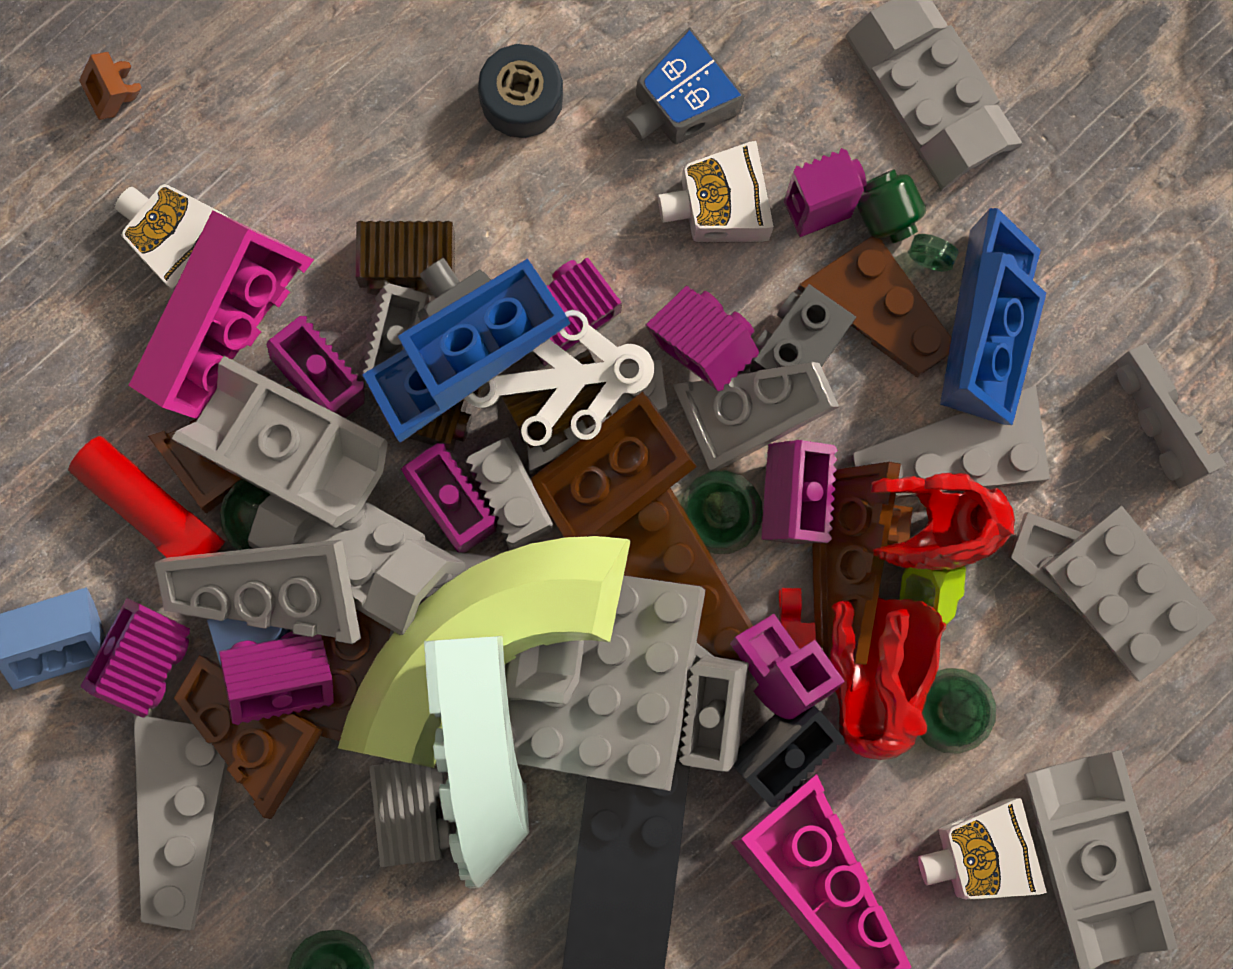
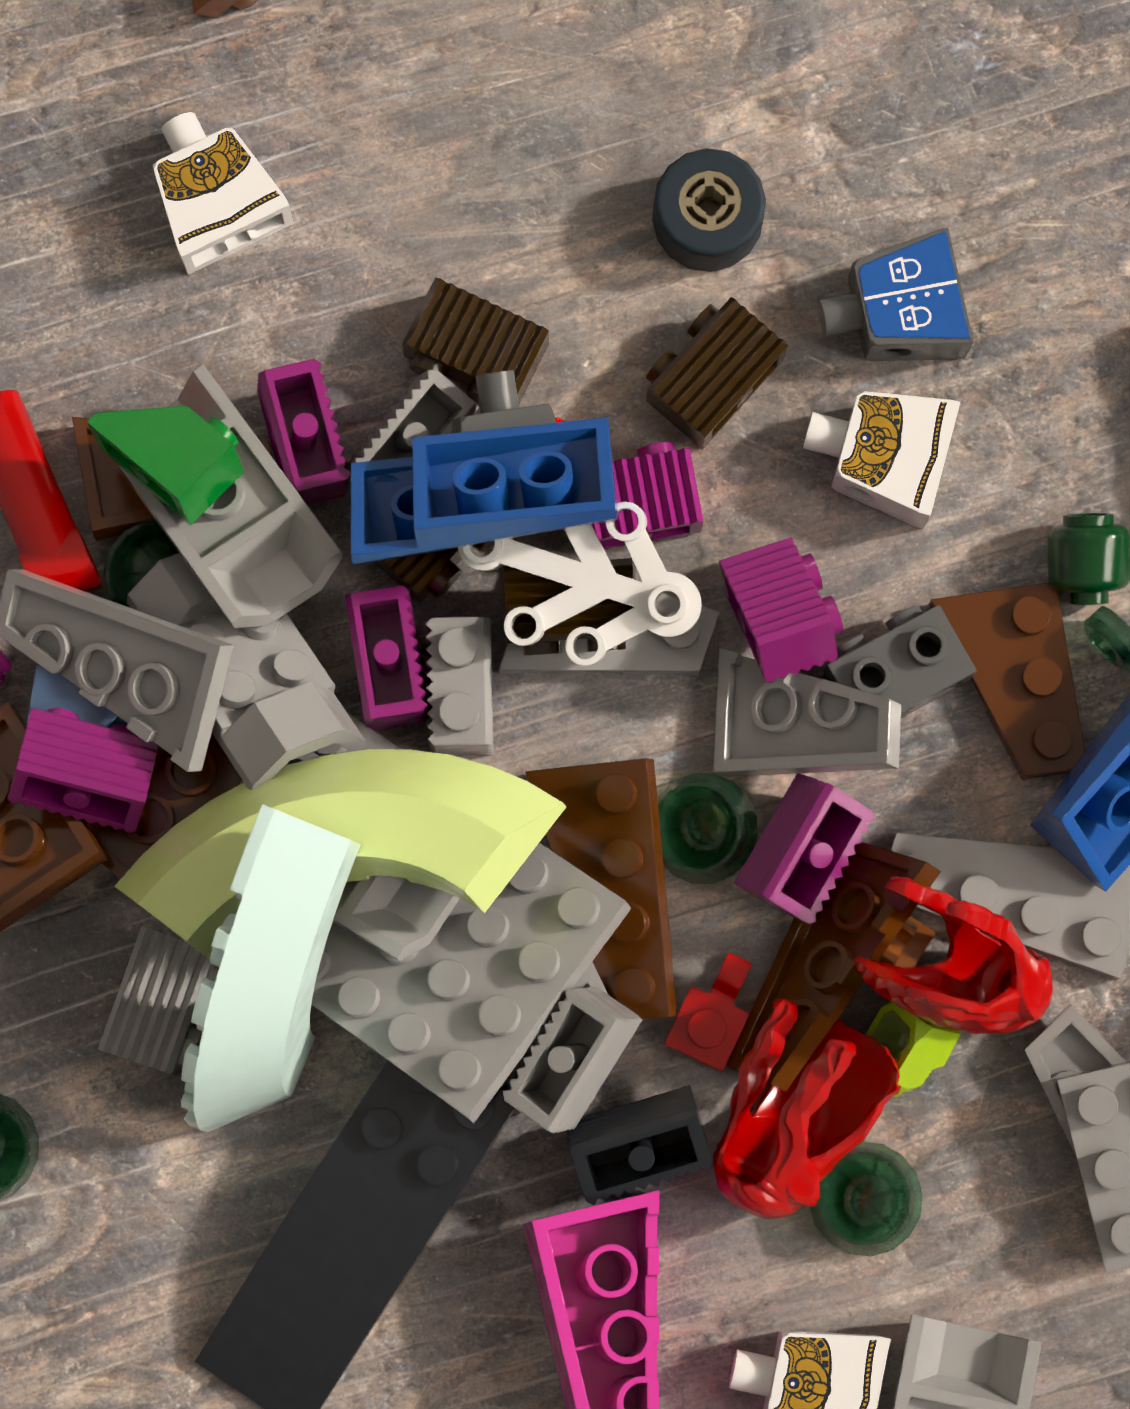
camera: 30 degrees right, 0 degrees up
(214, 312) = (219, 306): dark pink wedge -> none
(232, 427) = (171, 454): none -> green slope
(579, 197) = (715, 371): none -> dark brown brick
(615, 473) = (596, 719): reddish brown plate -> none
(786, 676) = (680, 1054): magenta brick -> none
(824, 192) = (1013, 503): magenta brick -> none

